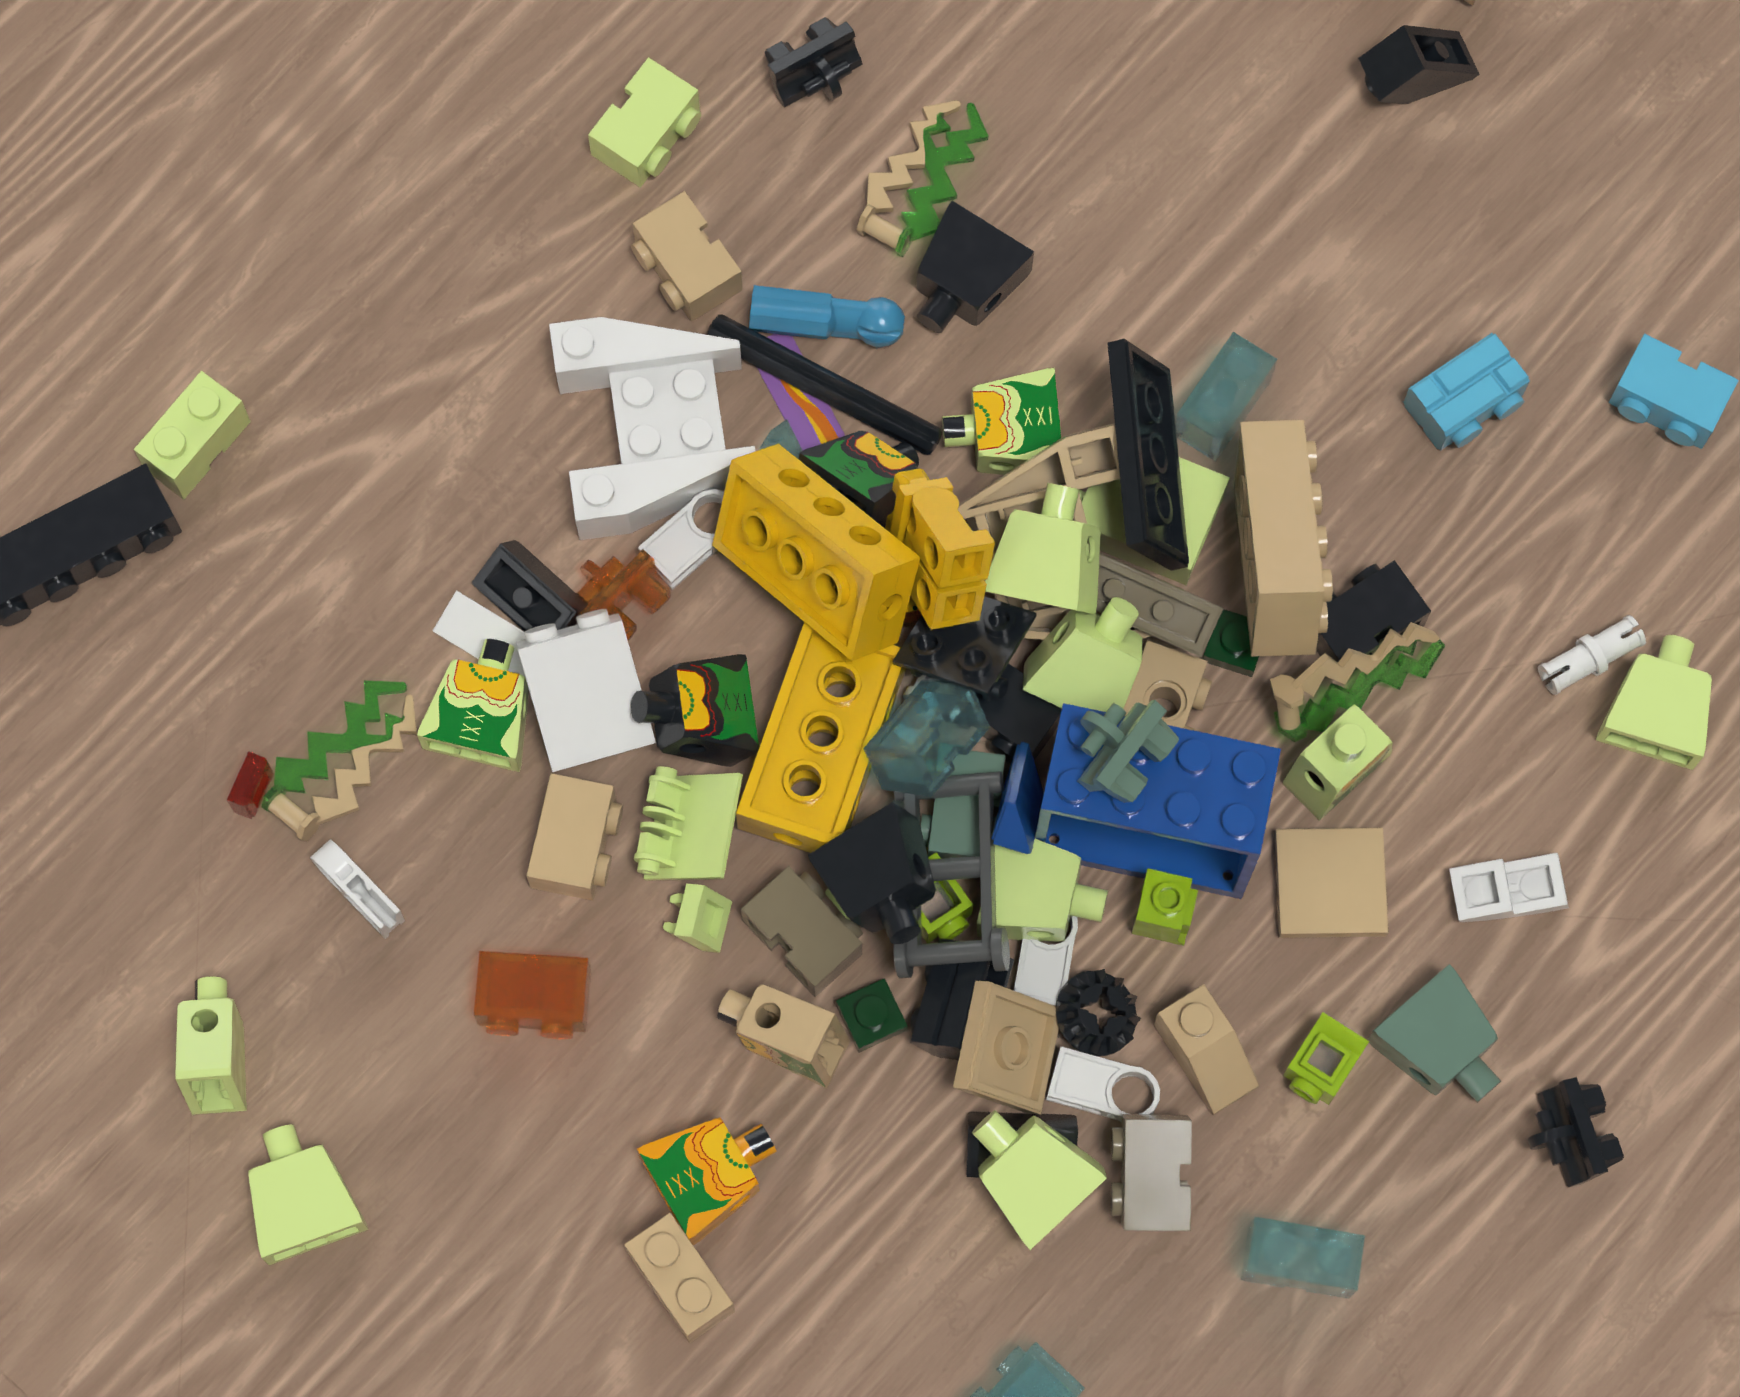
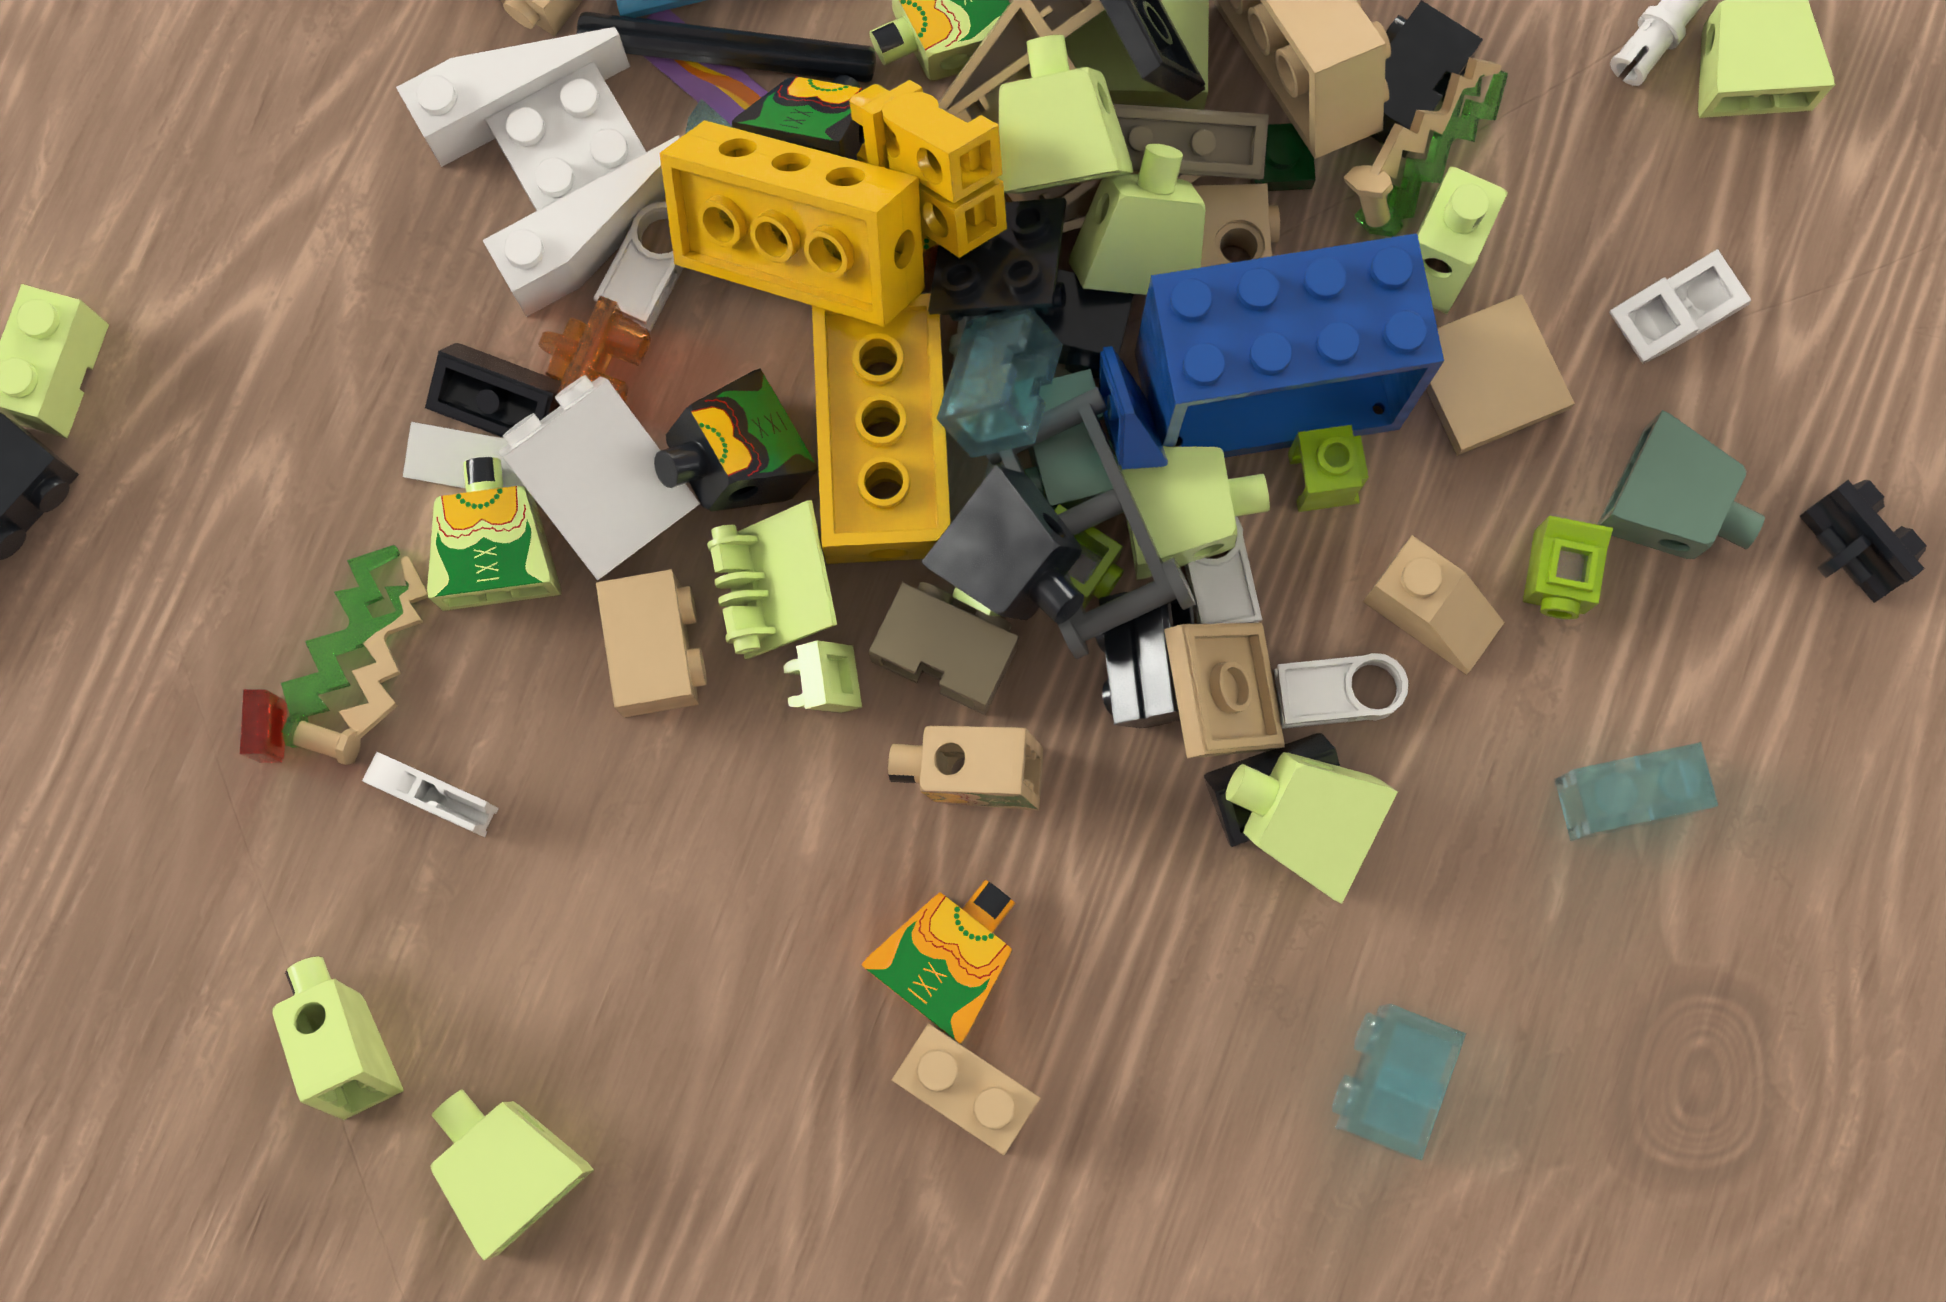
camera: 20 degrees left, 5 degrees up
(532, 994) = (673, 835): clear orange brick -> none
(871, 1015) = (1056, 710): dark green plate -> none
(1081, 1027) = (1290, 633): black gear -> none
(1139, 730) = (1238, 293): sand green hips -> none
(1150, 1185) = (1435, 765): brick -> none

